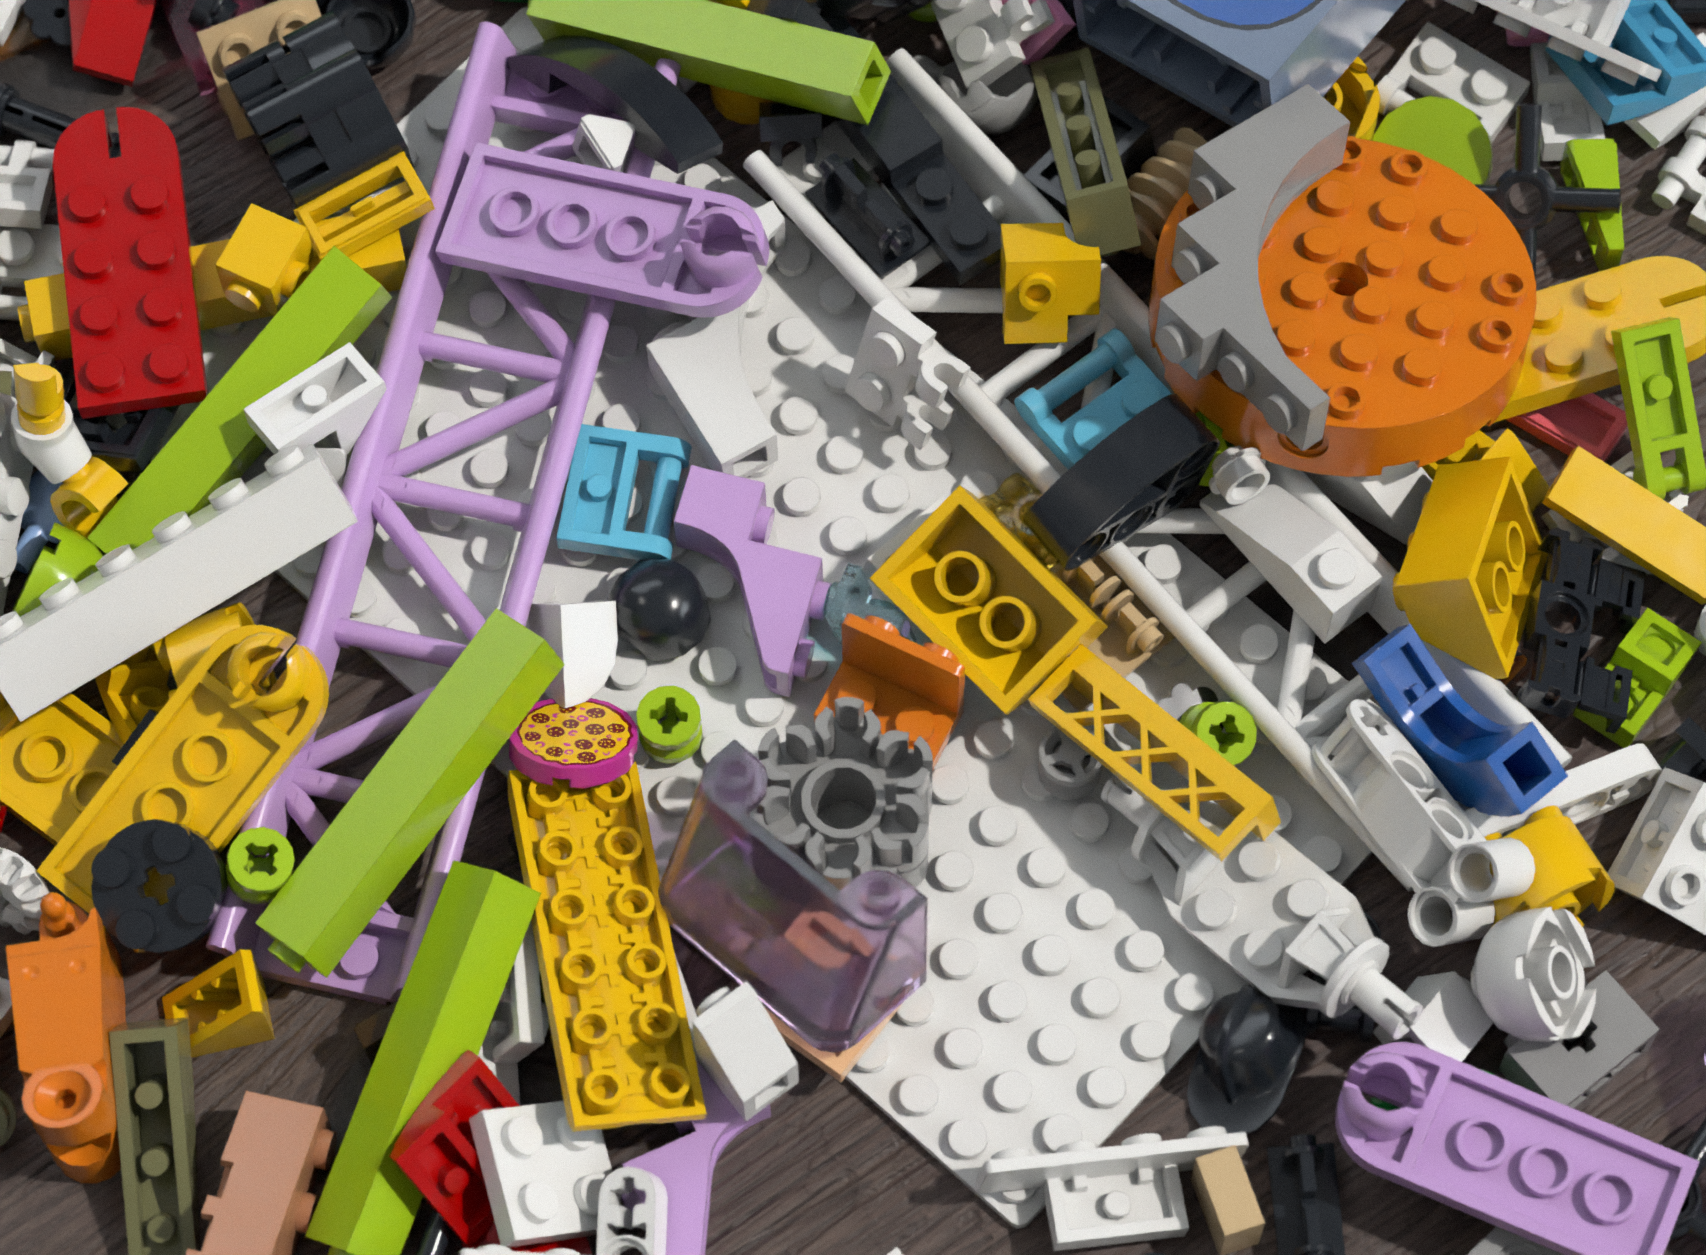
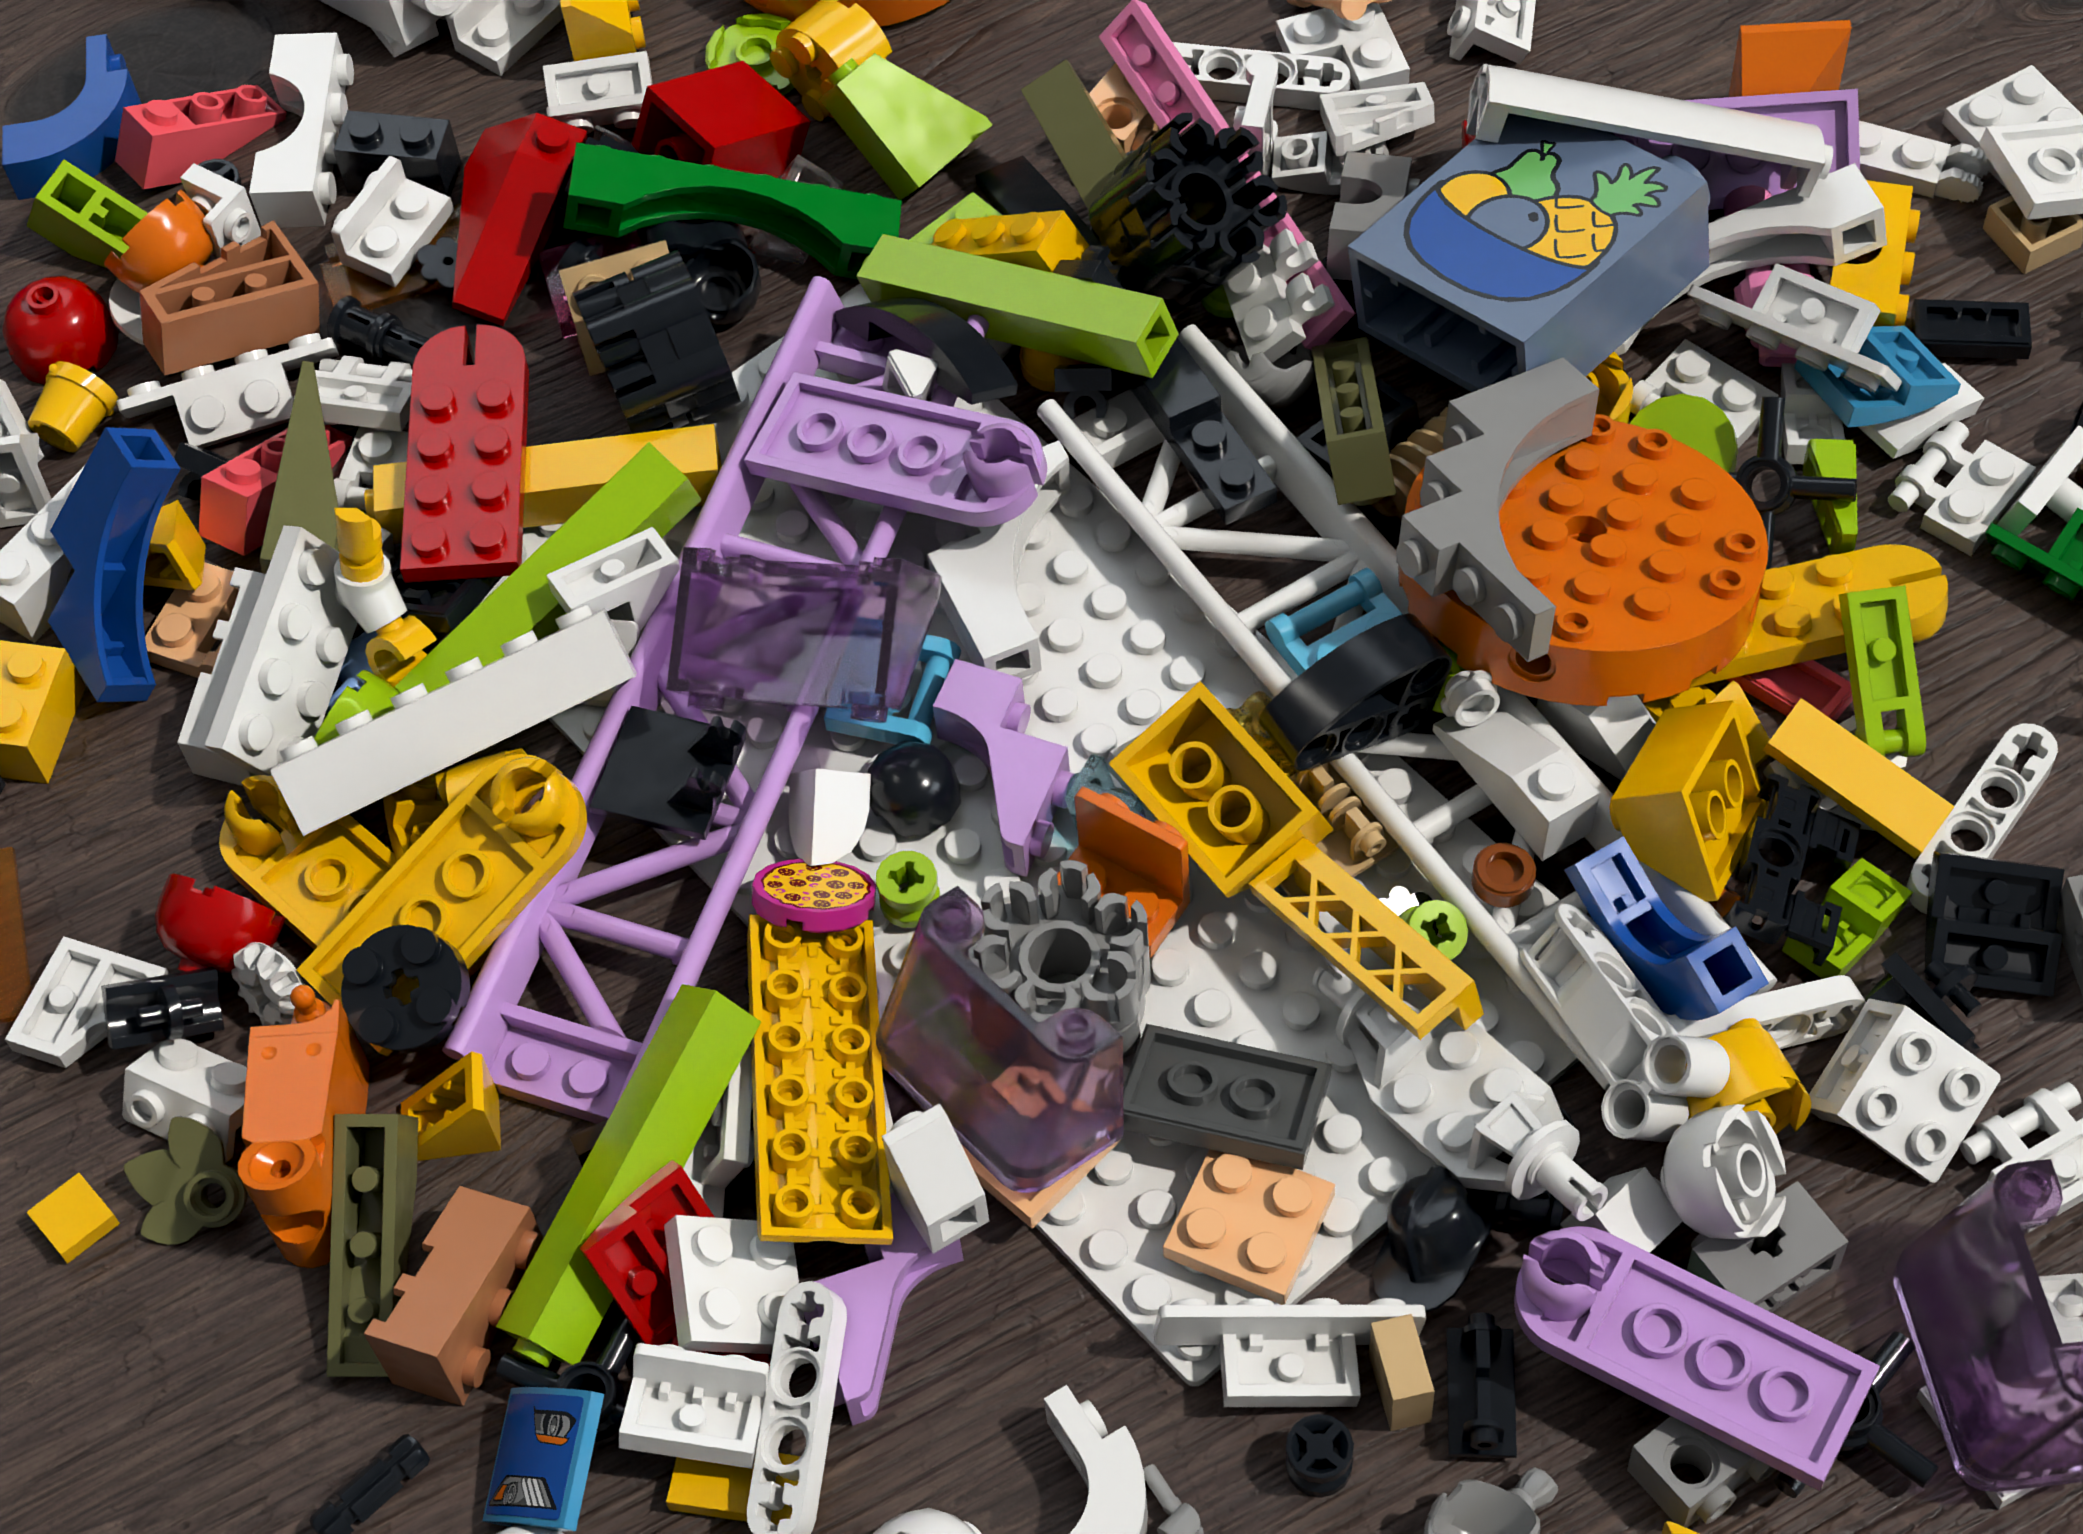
camera: 10 degrees right, 10 degrees down
(250, 876) = (503, 991): lime wheel -> none
(264, 261) = (585, 454): yellow brick -> none
(370, 217) = (688, 428): yellow tile -> none
(401, 616) = (669, 771): none -> black plate
(409, 795) = (649, 925): lime brick -> none
(526, 456) = (799, 632): none -> clear purple windscreen
(866, 215) = (1143, 458): black hinge -> none
(902, 372) = (1162, 592): white plate -> none
(1024, 926) = (1224, 1096): none -> dark grey tile
(1045, 281) = (1302, 521): yellow brick -> none
(1059, 749) = (1301, 961): light grey wheel -> none
(1060, 1055) = (1249, 1223): none -> light nougat plate
(1287, 664) = (1503, 875): none -> dark orange tile

